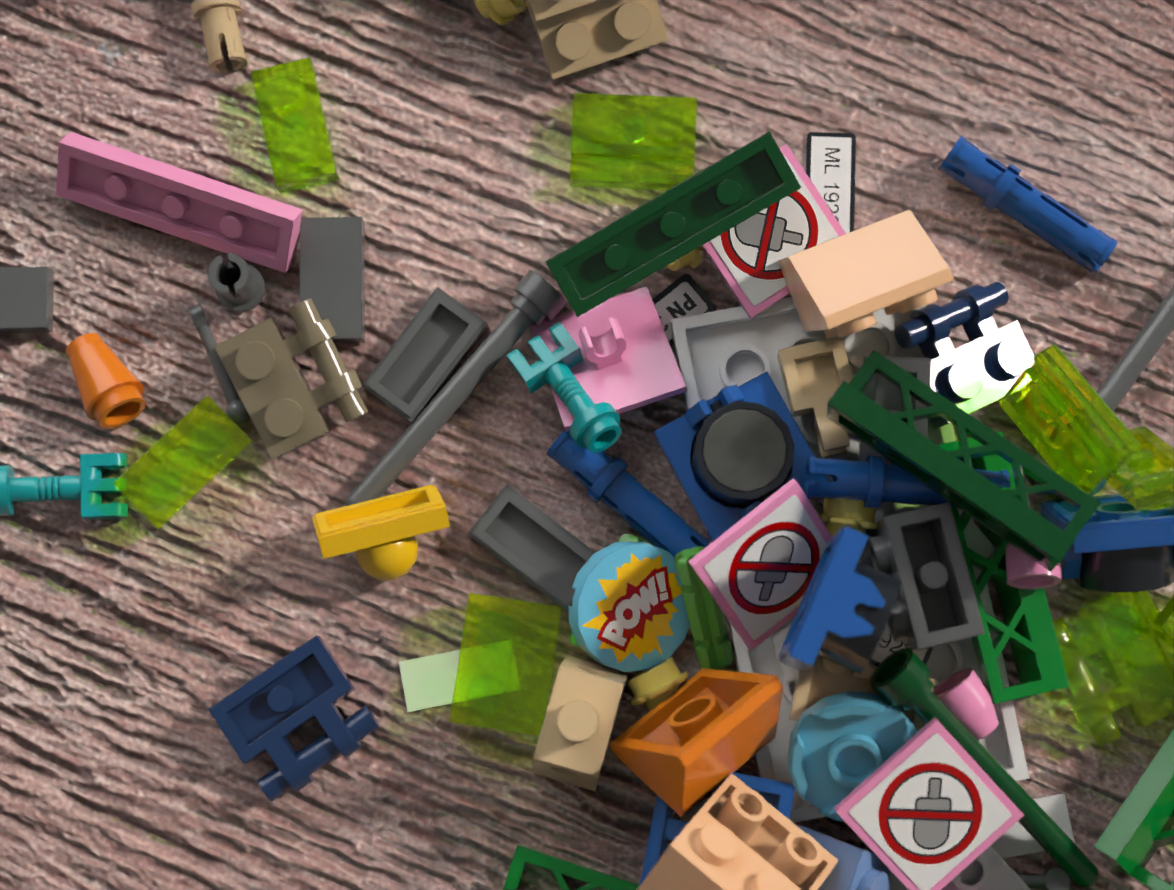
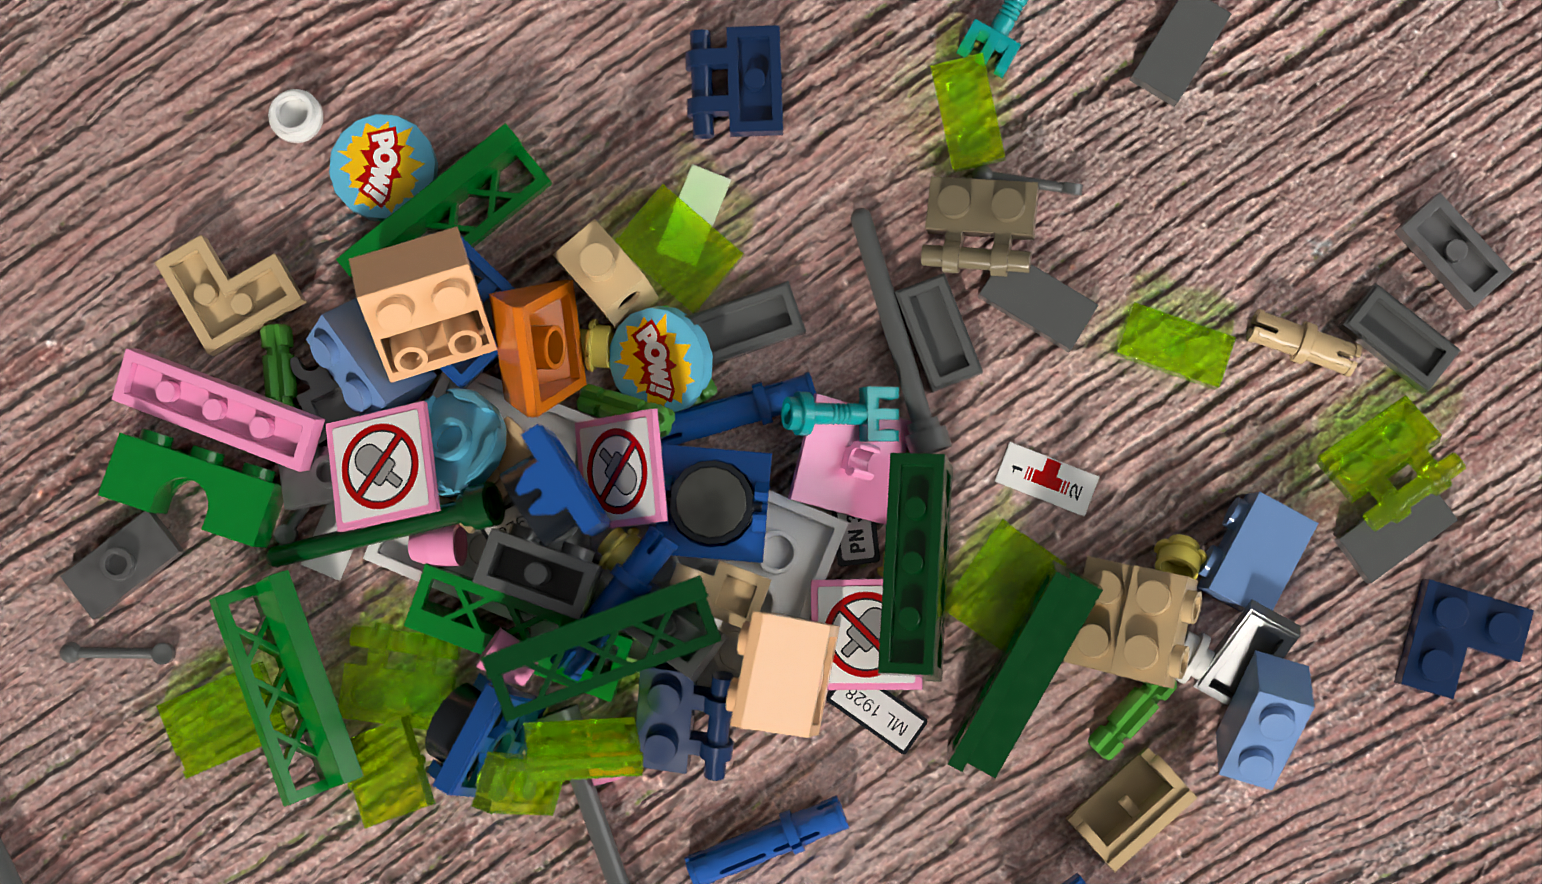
camera: 115 degrees right, 5 degrees up
(104, 382) = (1064, 92): orange cone -> none
(178, 202) = (1166, 223): bright pink plate -> none
(248, 285) = (1071, 239): dark grey pin -> none
(382, 530) = (828, 220): yellow tile -> none
(502, 166) = (1047, 479): none -> white sticker
(703, 68) = (1023, 670): none -> dark green fence

